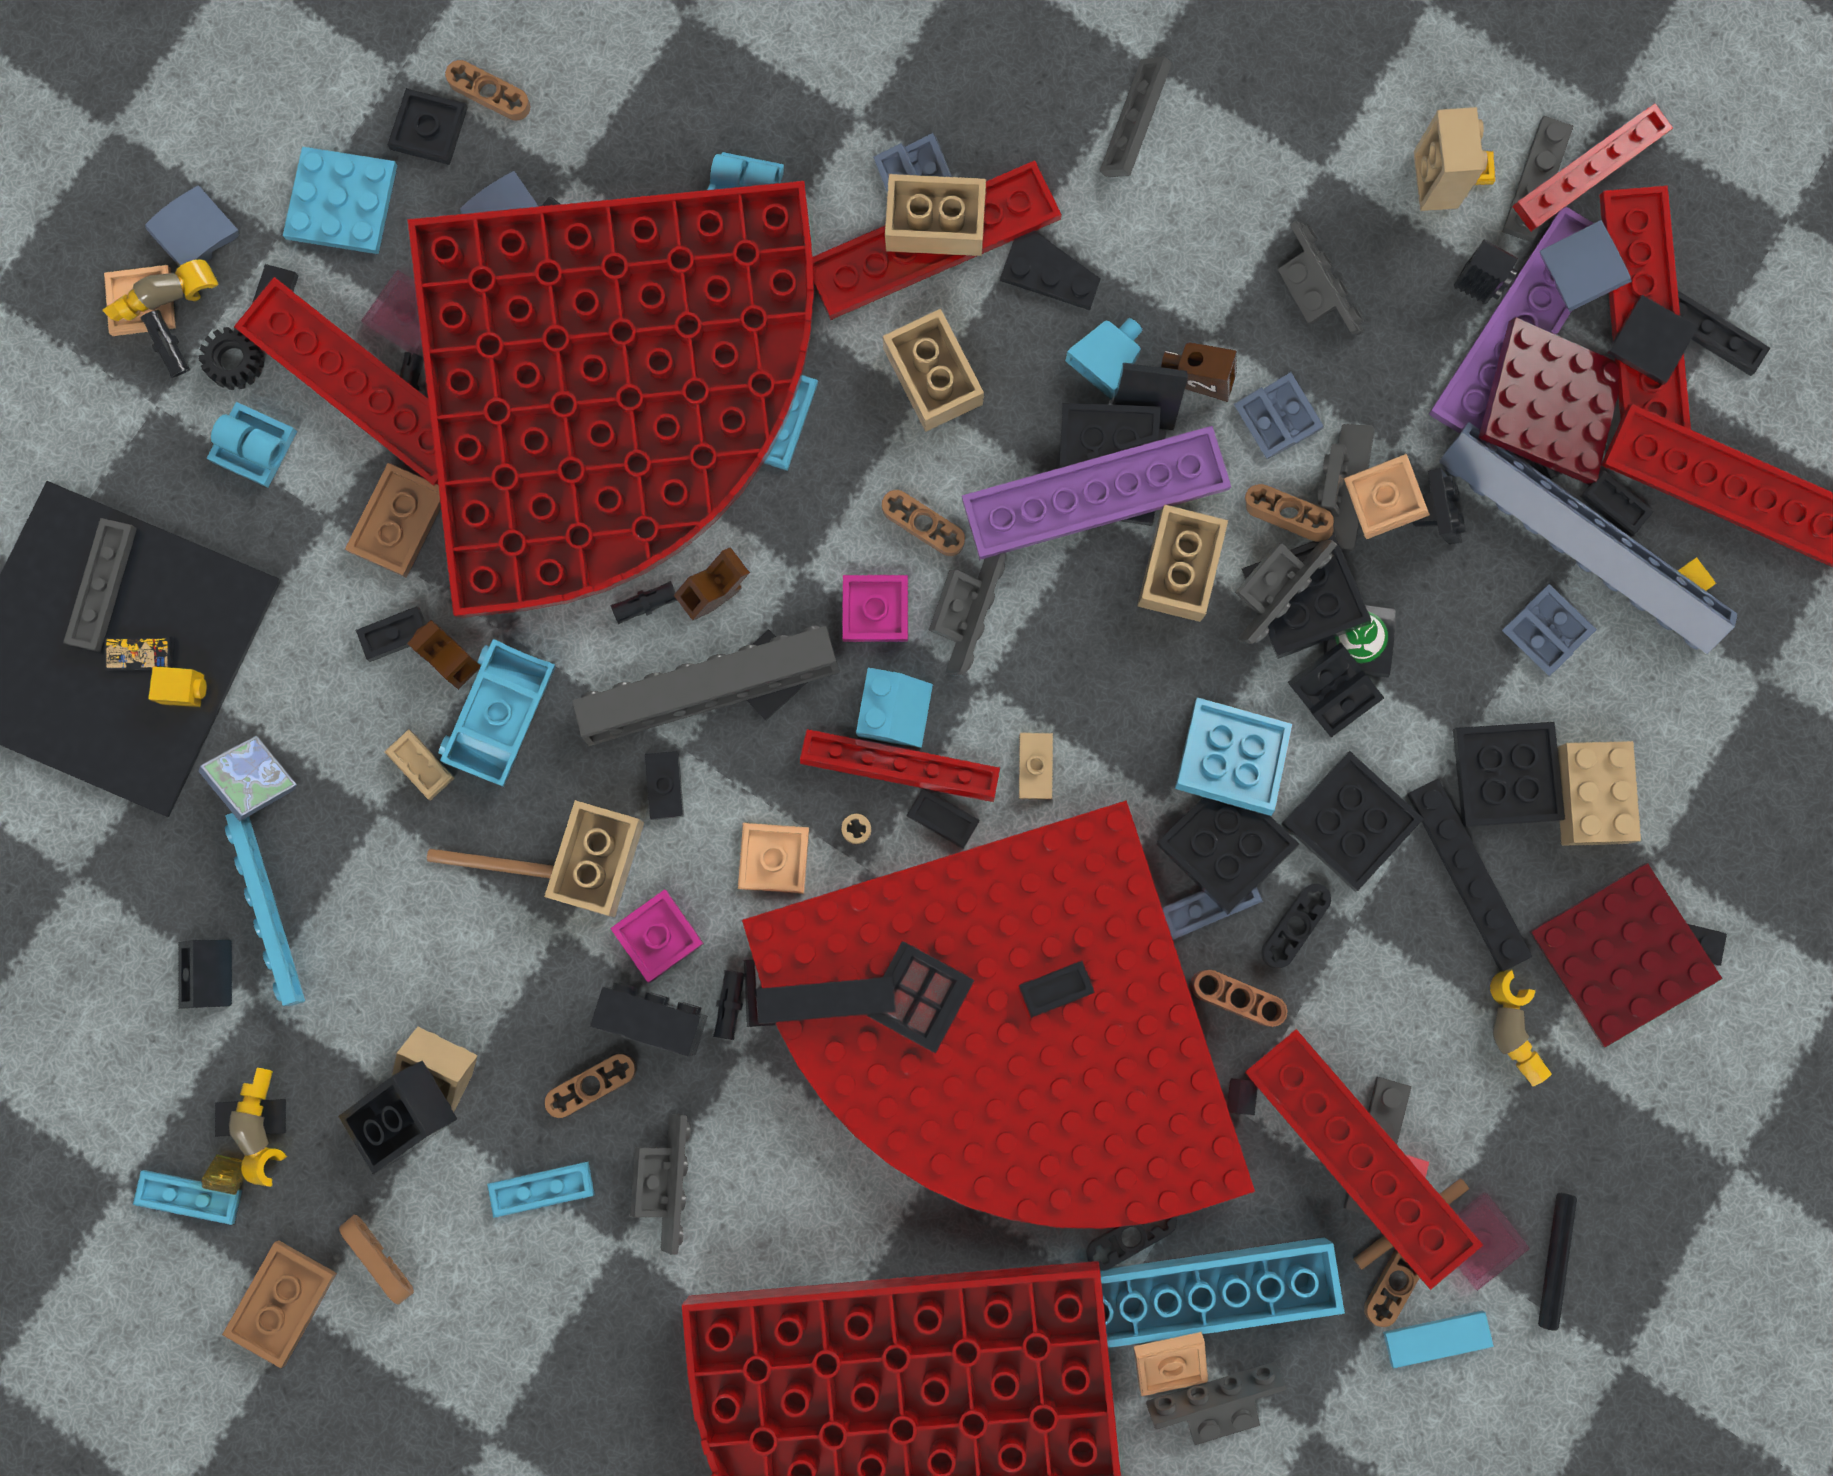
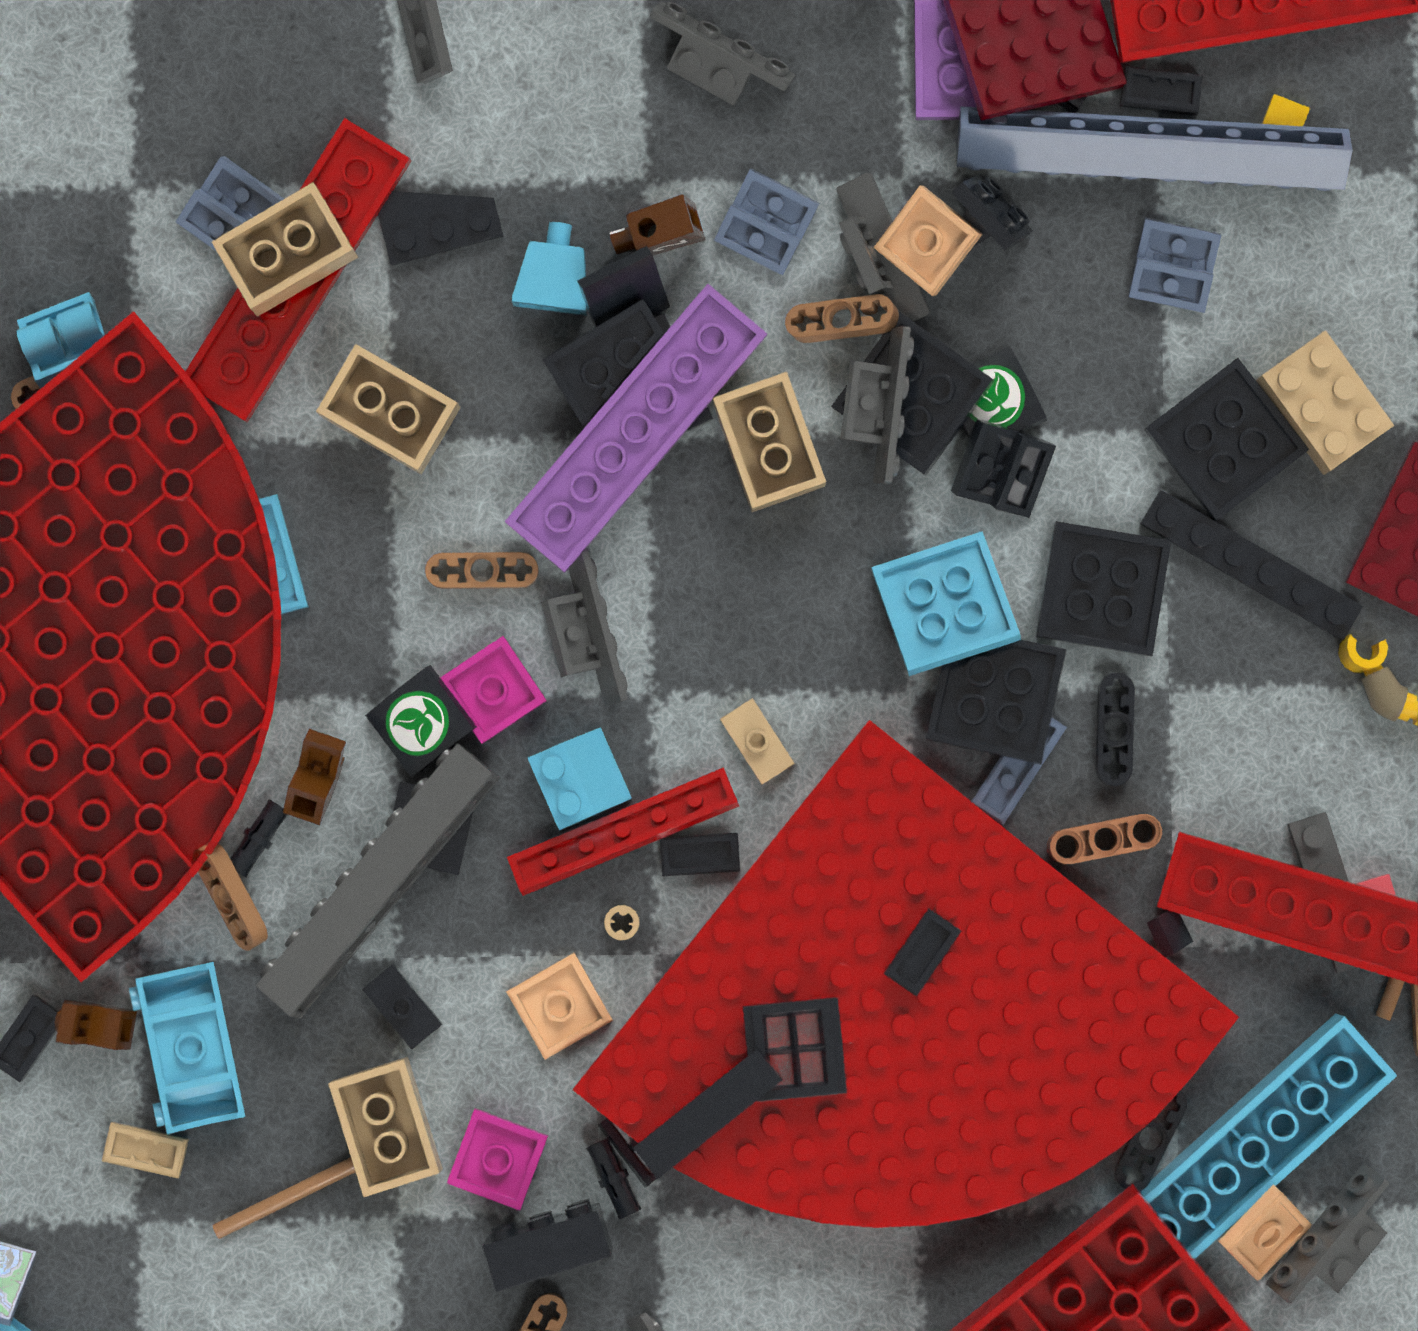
camera: 35 degrees left, 5 degrees up
(598, 631) = (232, 898): none -> medium nougat beam
(811, 596) = (420, 721): none -> slope

